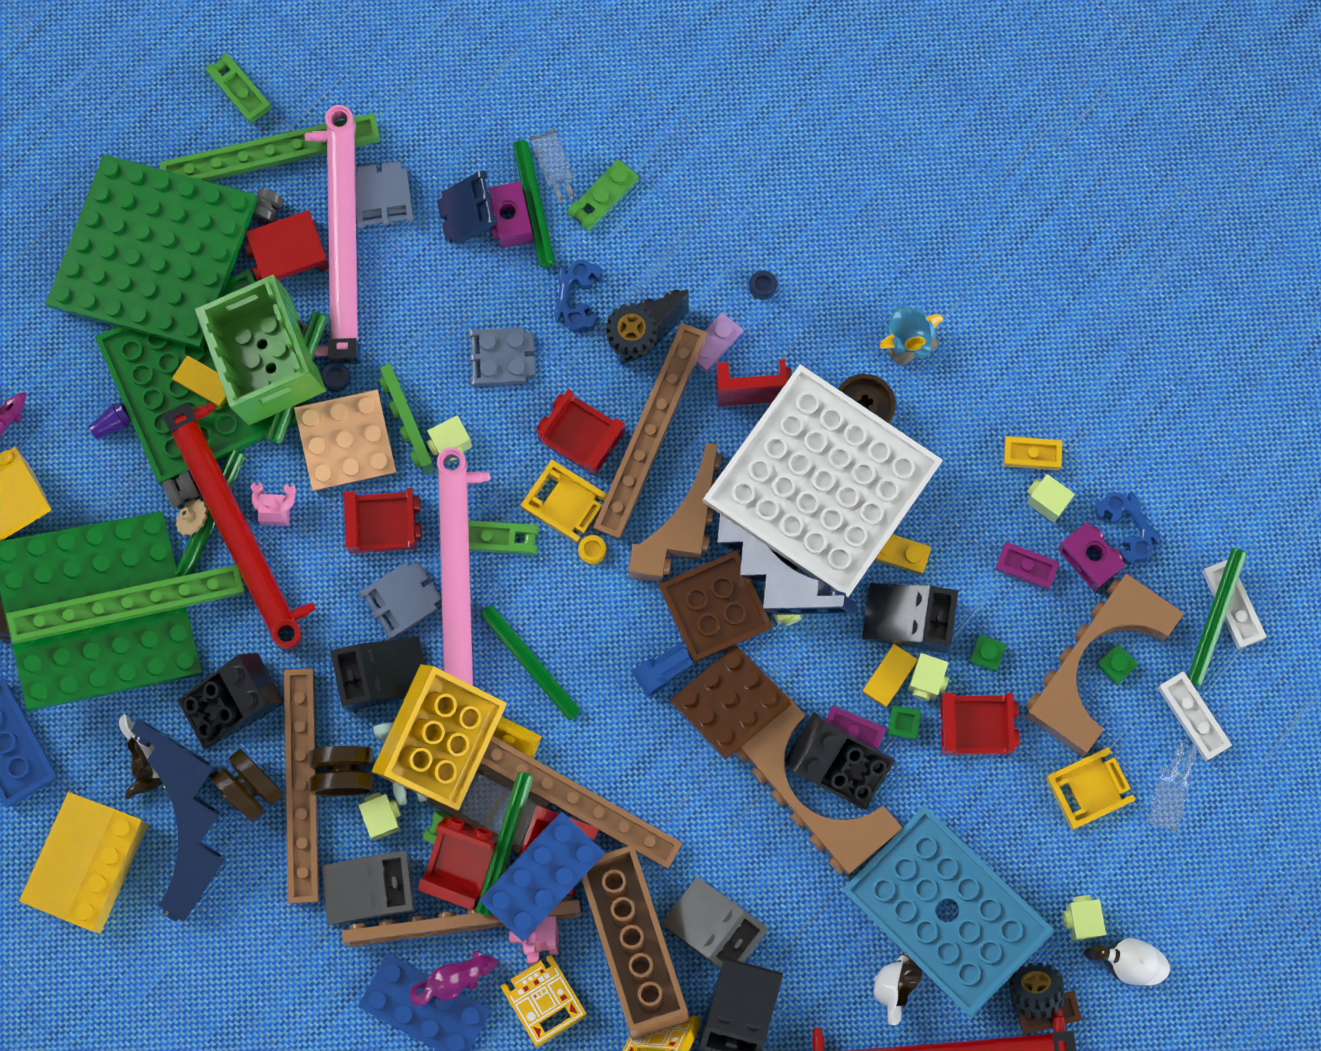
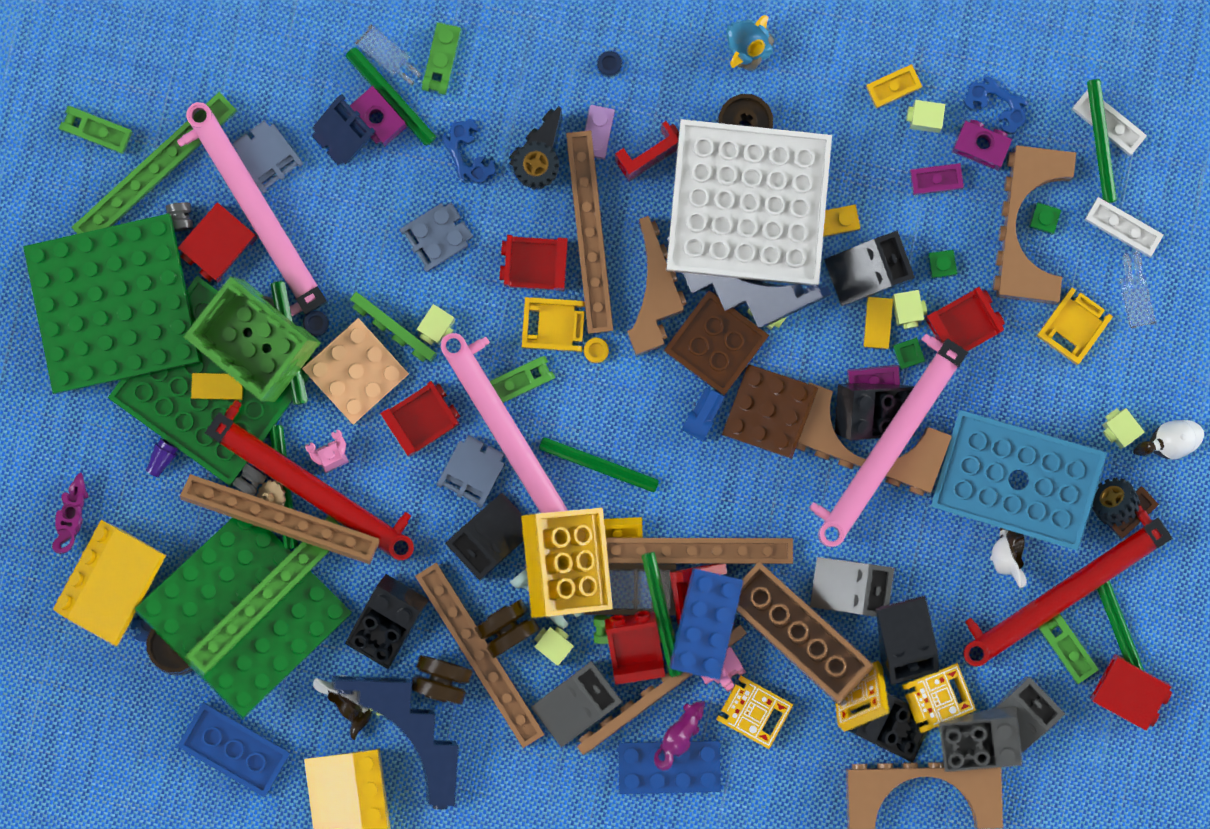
camera: 30 degrees left, 10 degrees up
(185, 540) = (279, 519): none -> medium nougat plate
(837, 798) = (893, 441): none -> bright pink piece

